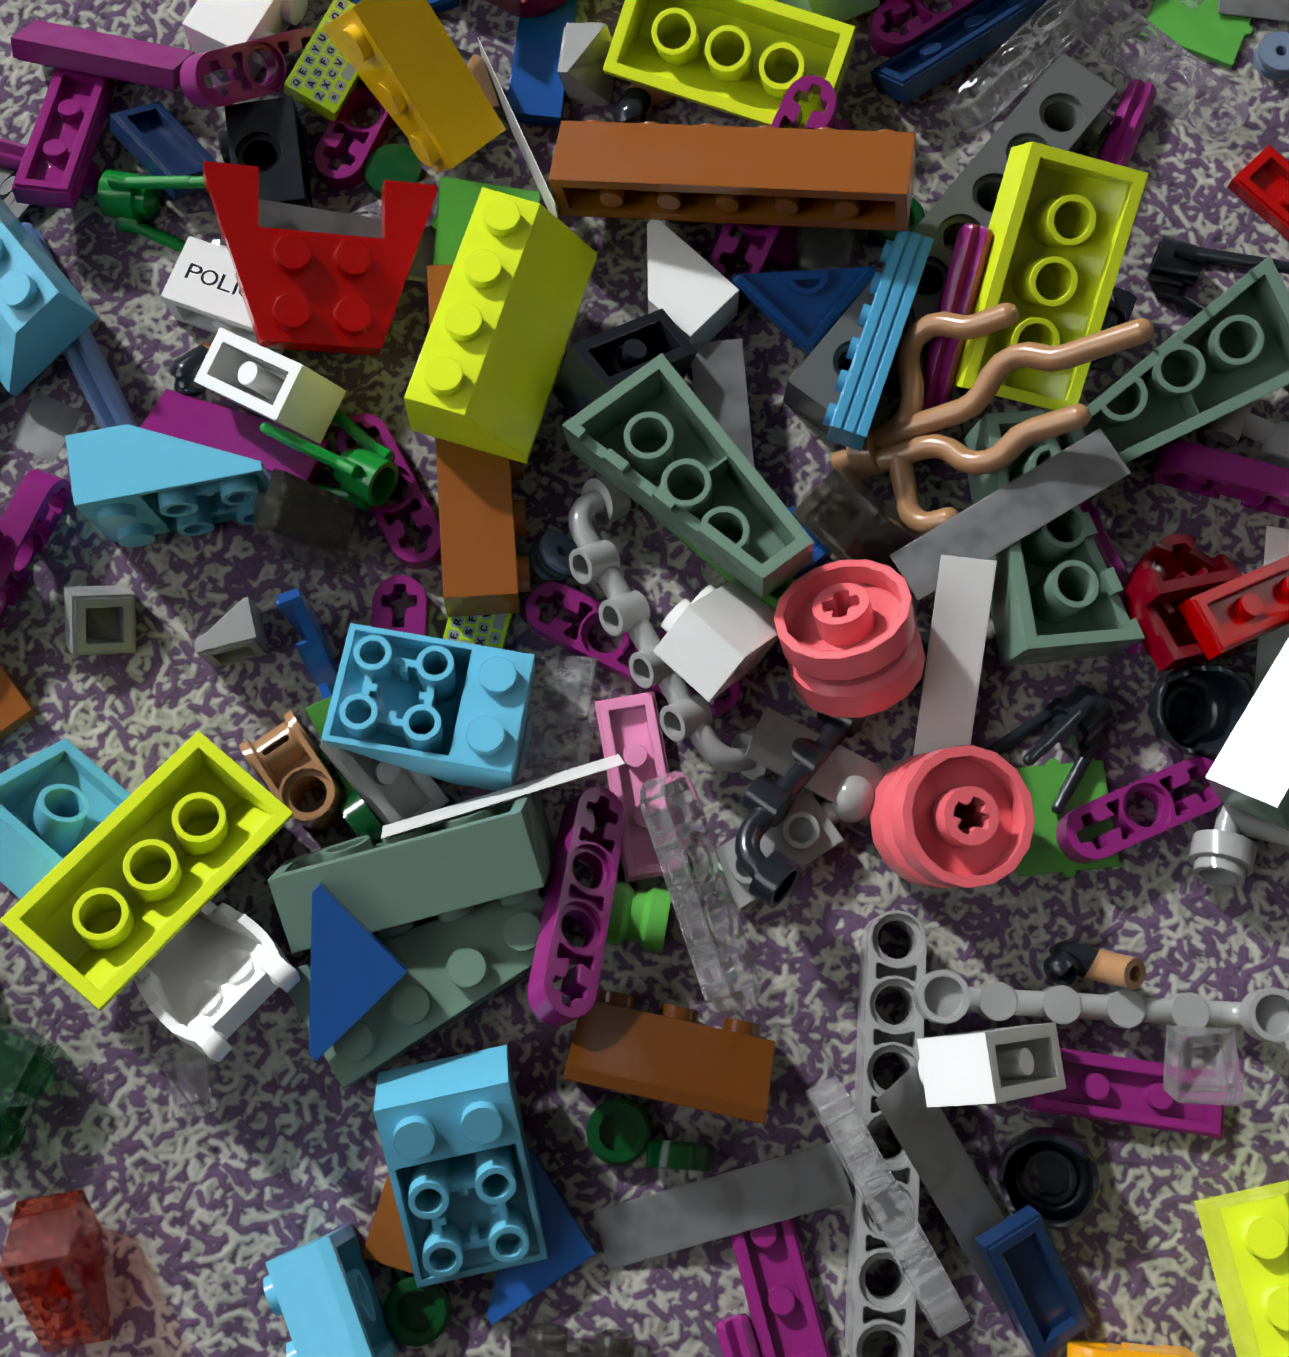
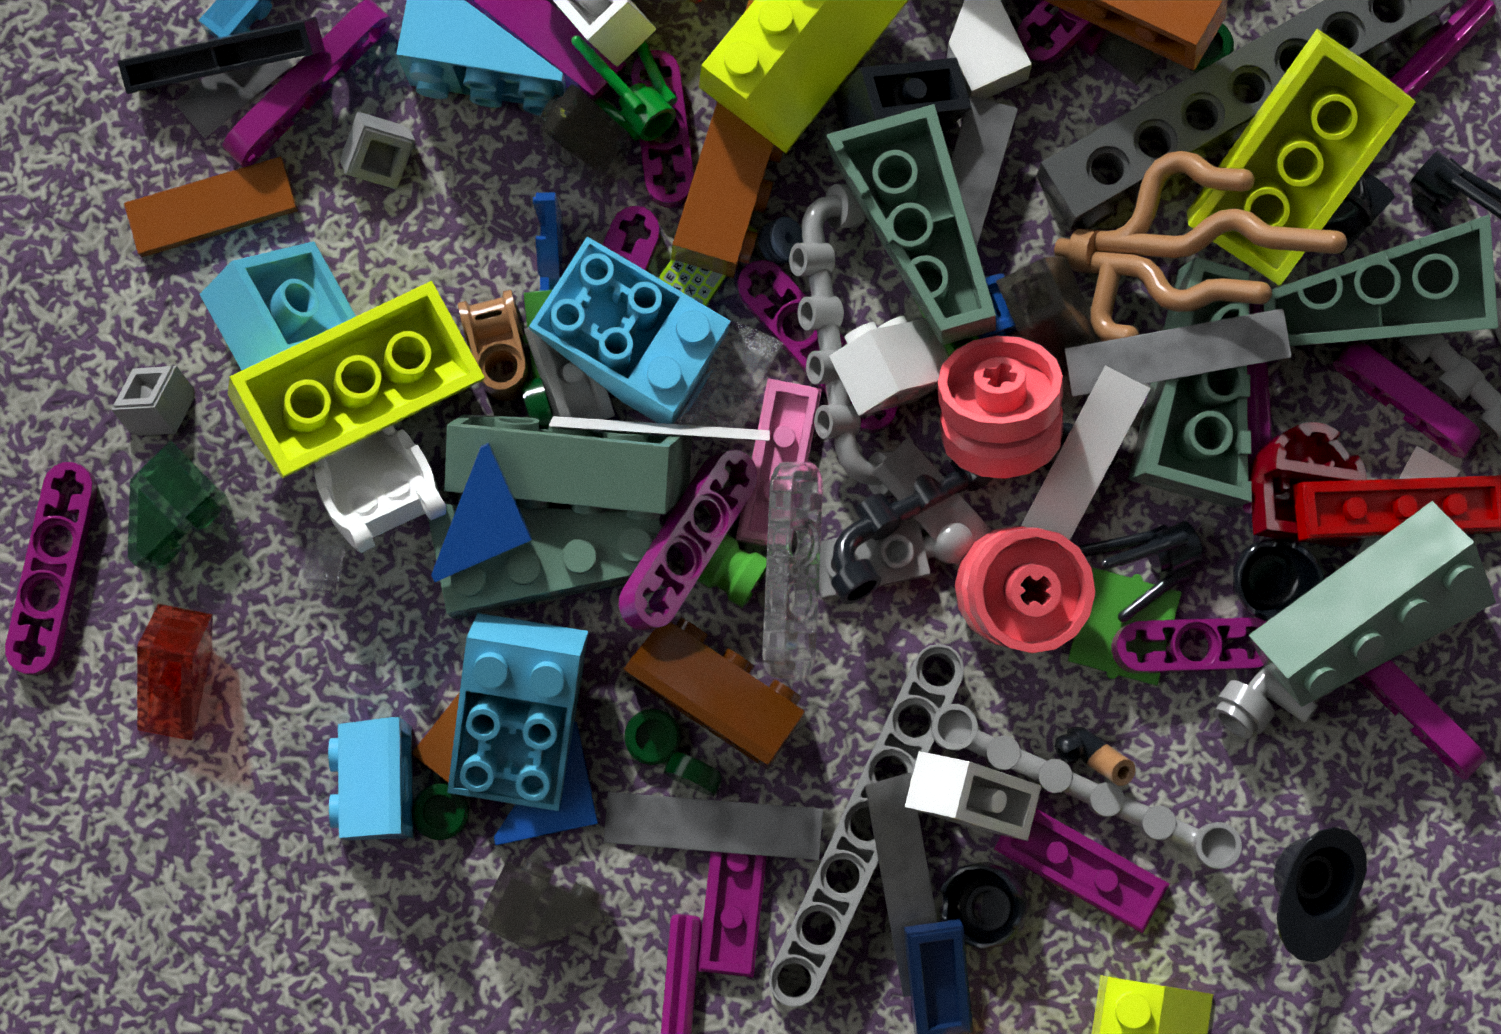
camera: 25 degrees right, 5 degrees up
(234, 637) = (485, 208): light grey slope -> none
(804, 301) = (1089, 92): blue tile -> none
(876, 347) = (1133, 156): dark azure piece -> none
(887, 1207) = (841, 867): clear beam -> none
(957, 297) = (1216, 150): magenta axle -> none
(1202, 1066) = (1147, 866): clear slope -> none

